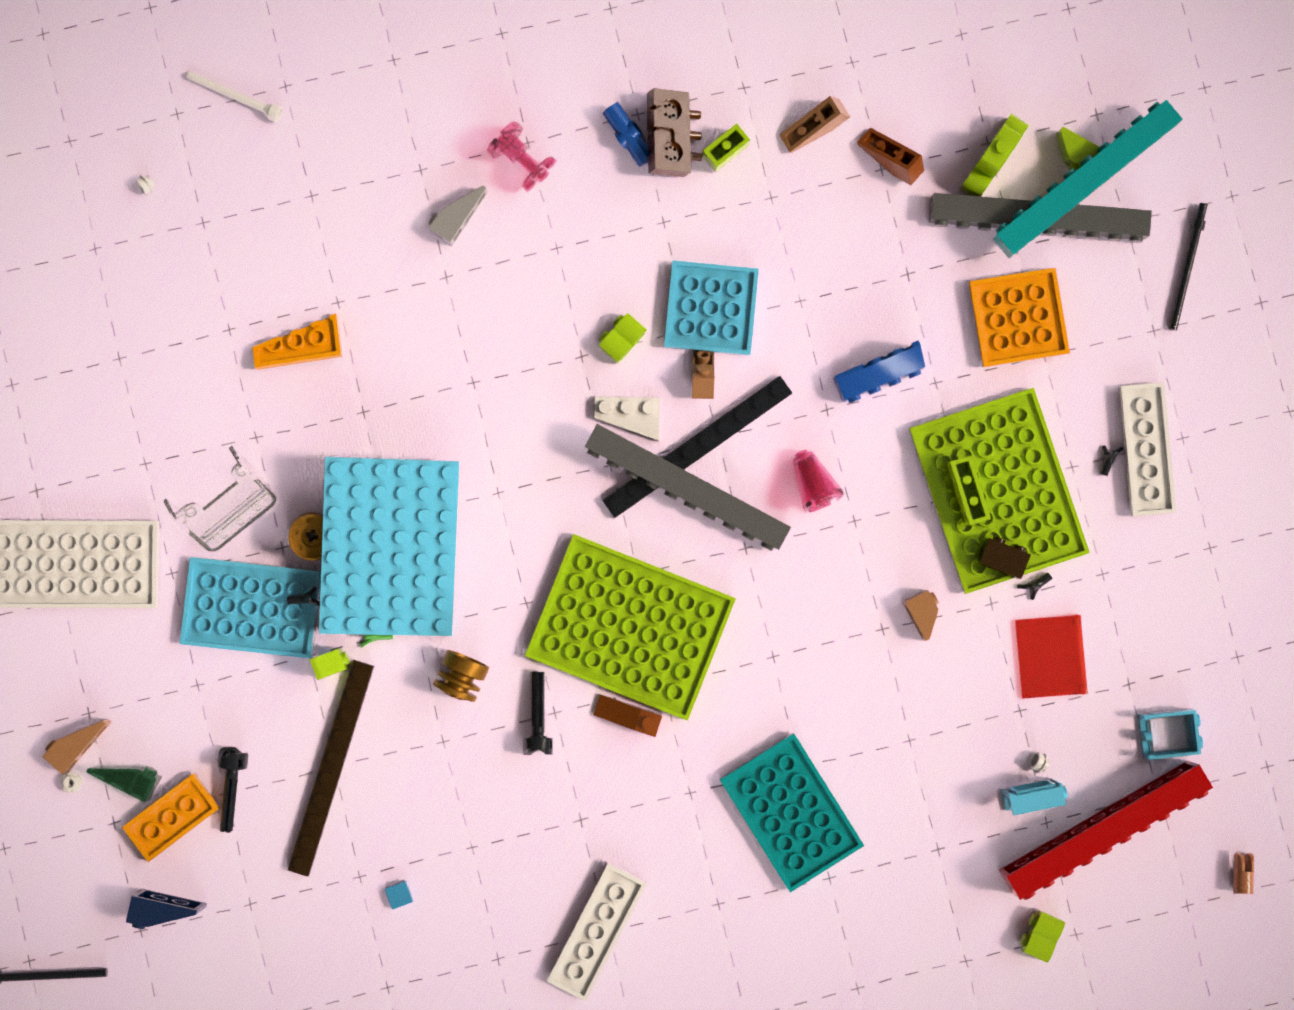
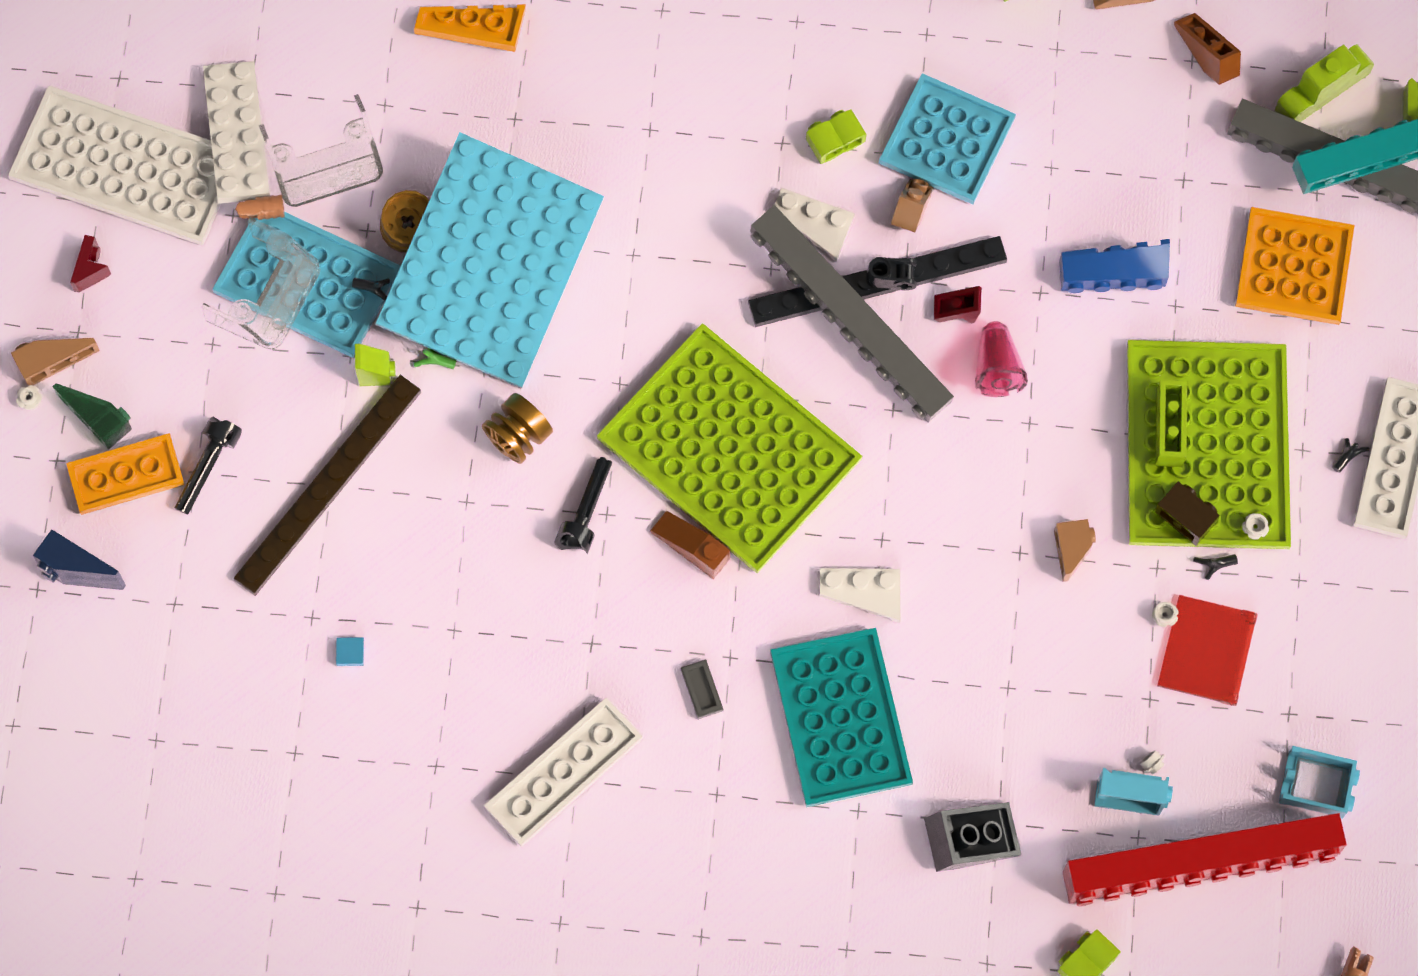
camera: 15 degrees right, 15 degrees down
(73, 664) = (86, 270): none -> dark red slope
(142, 502) = (235, 132): none -> white plate
(193, 565) = (261, 208): none -> nougat hinge
(237, 633) = (282, 298): none -> clear windscreen
(678, 827) = (702, 689): none -> dark grey tile
(710, 441) = (894, 273): none -> black piece
(767, 447) = (958, 304): none -> dark red slope
(775, 702) = (865, 589): none -> white wing
(923, 871) = (972, 836): none -> black slope
(1010, 647) = (1165, 607): none -> white plate
(1062, 543) = (1260, 521): none -> white plate

